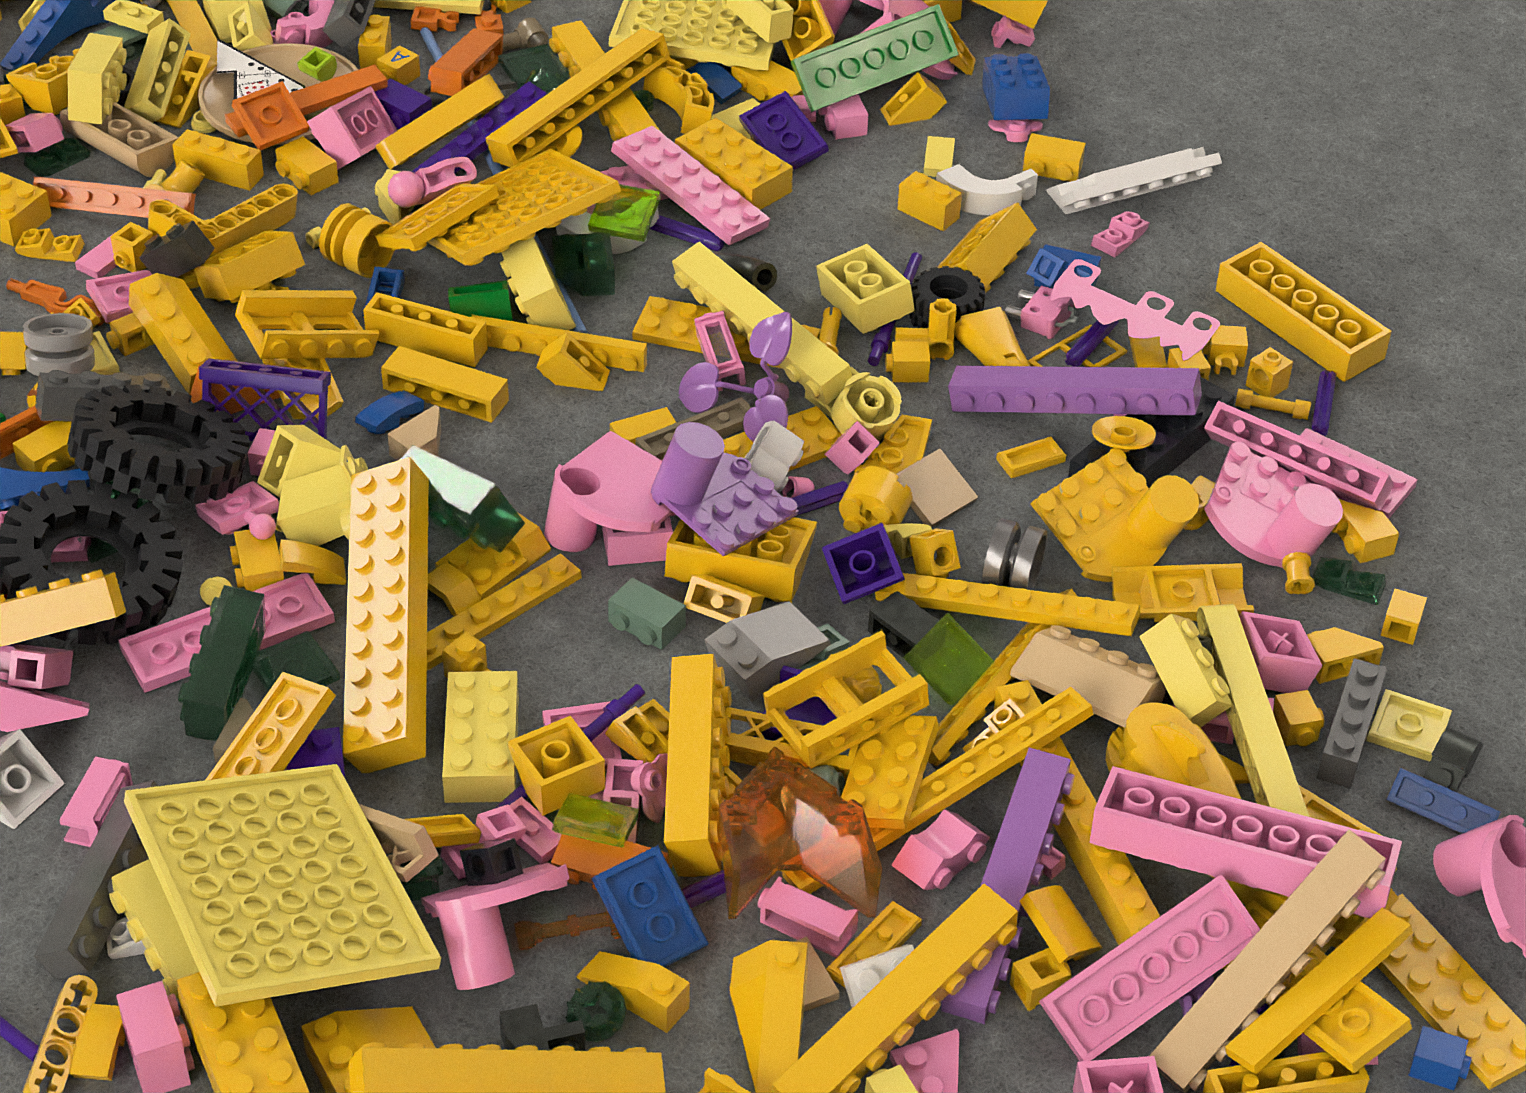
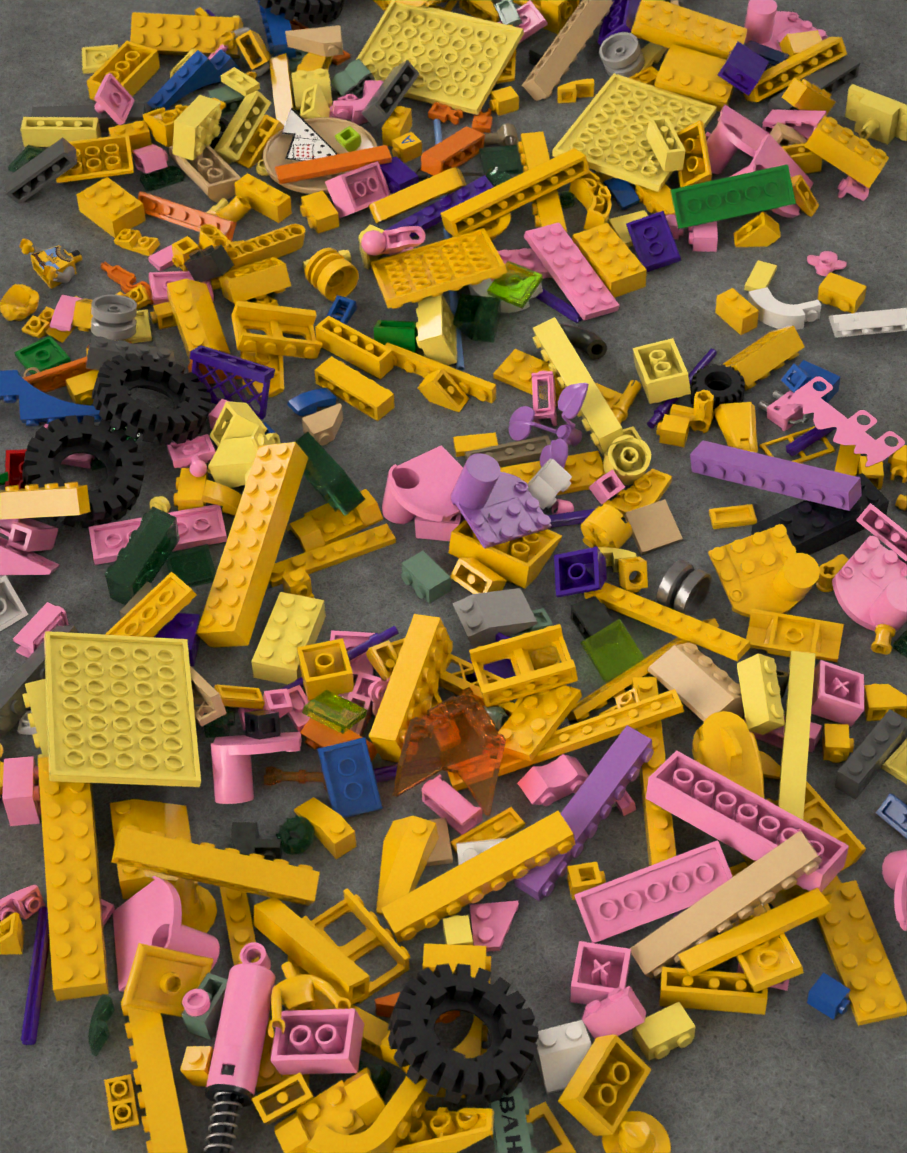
camera: 20 degrees right, 5 degrees up
(270, 116) = (302, 173): orange plate -> none
(437, 216) = (386, 267): yellow plate -> none
(1015, 87) = (834, 233): blue brick -> none
(1060, 923) = (610, 847): yellow slope -> none
(1121, 233) = (869, 359): bright pink slope -> none
(1123, 432) = (791, 514): yellow dish -> none

